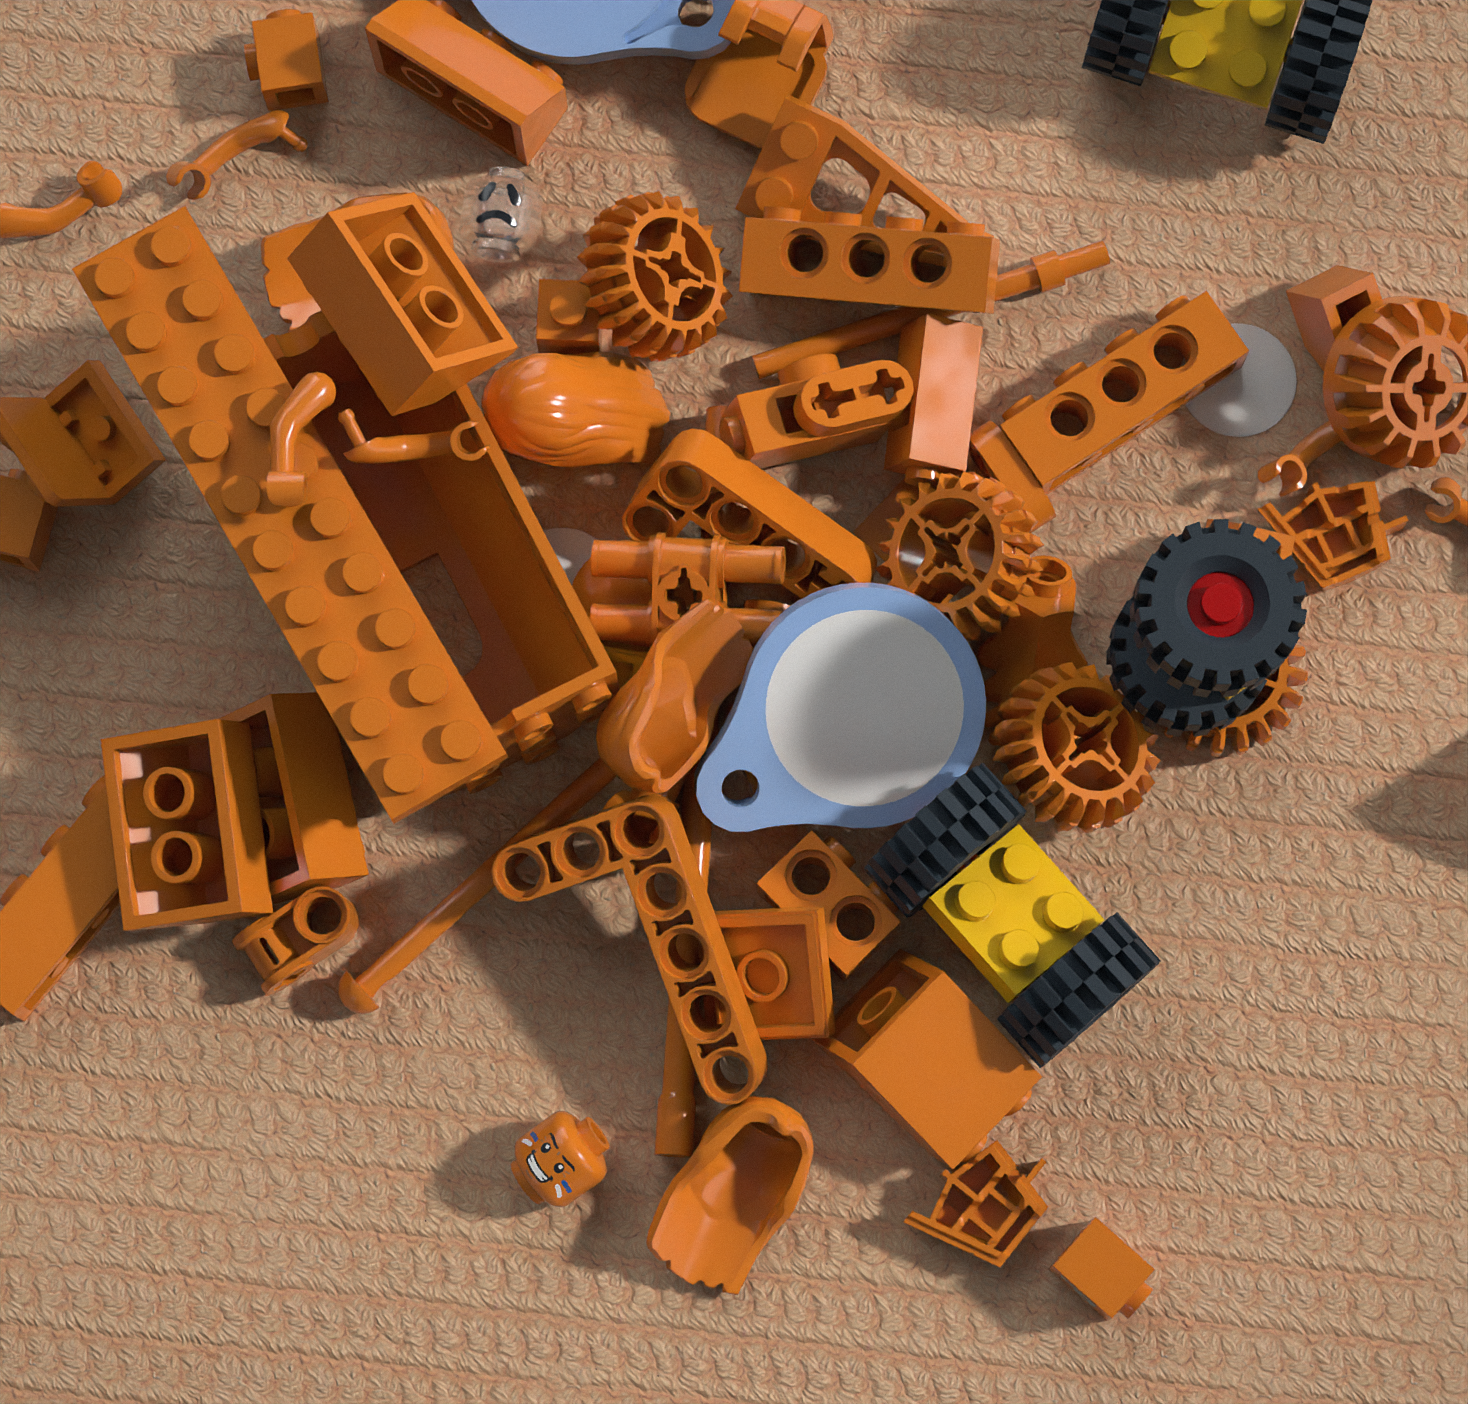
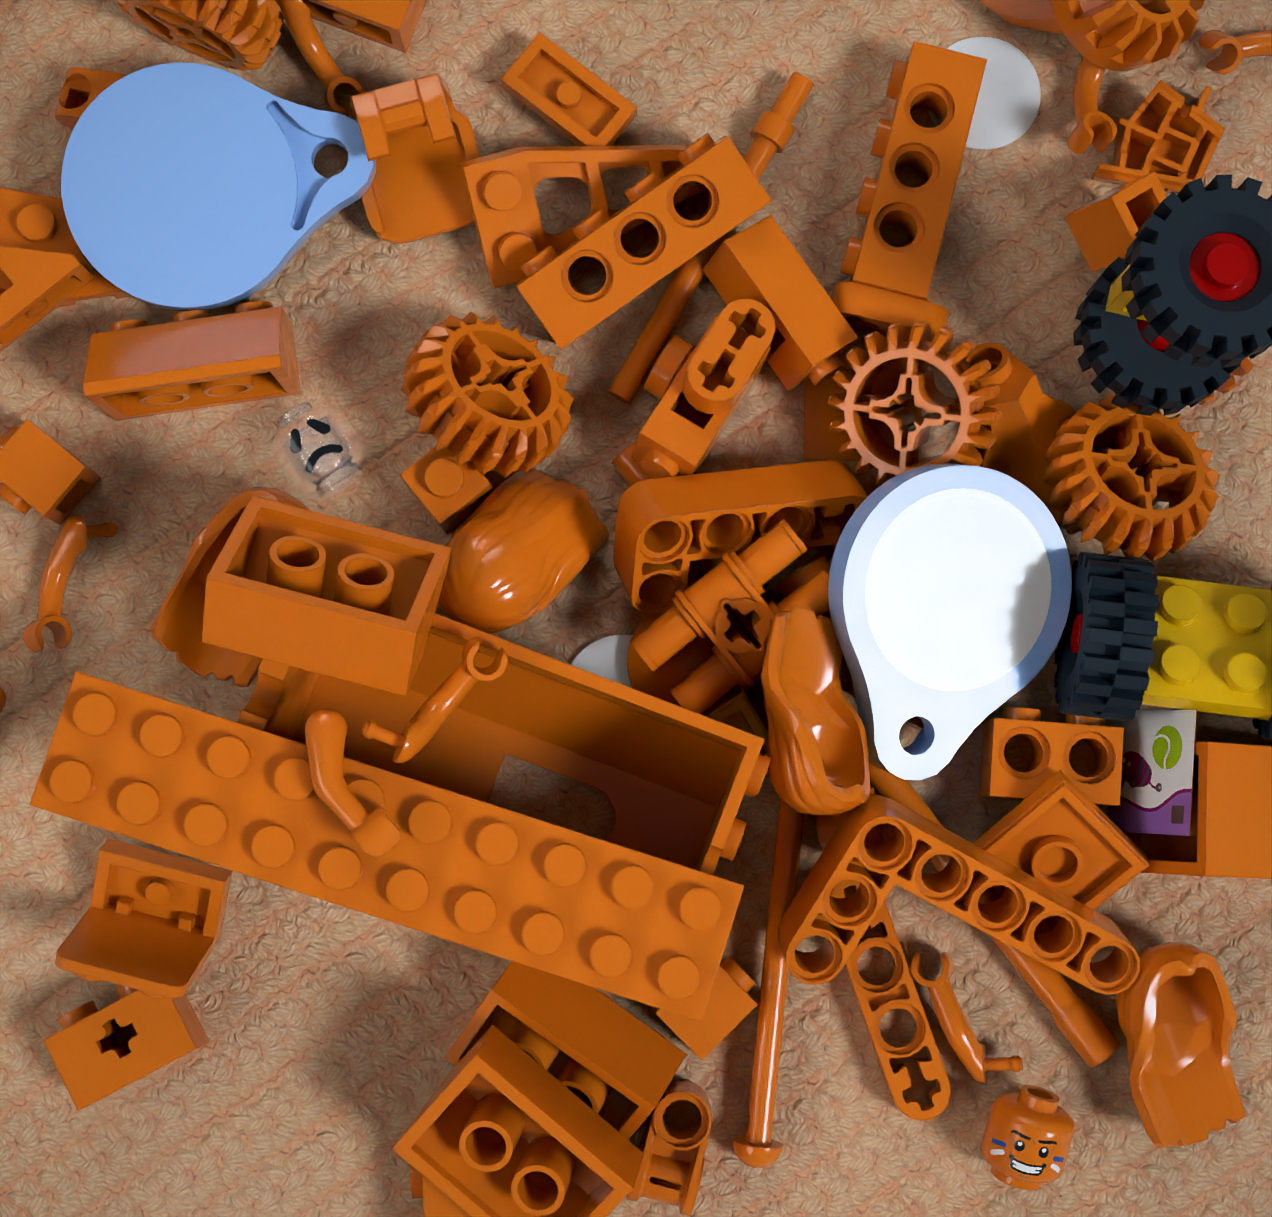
camera: 45 degrees left, 5 degrees up
(417, 855) = (725, 1010): none -> orange brick
(562, 974) = (896, 993): none -> orange beam
(581, 1031) = (955, 1025): none -> orange piece
(893, 973) = (1157, 773): none -> sticker
(918, 115) = (568, 95): none -> orange plate

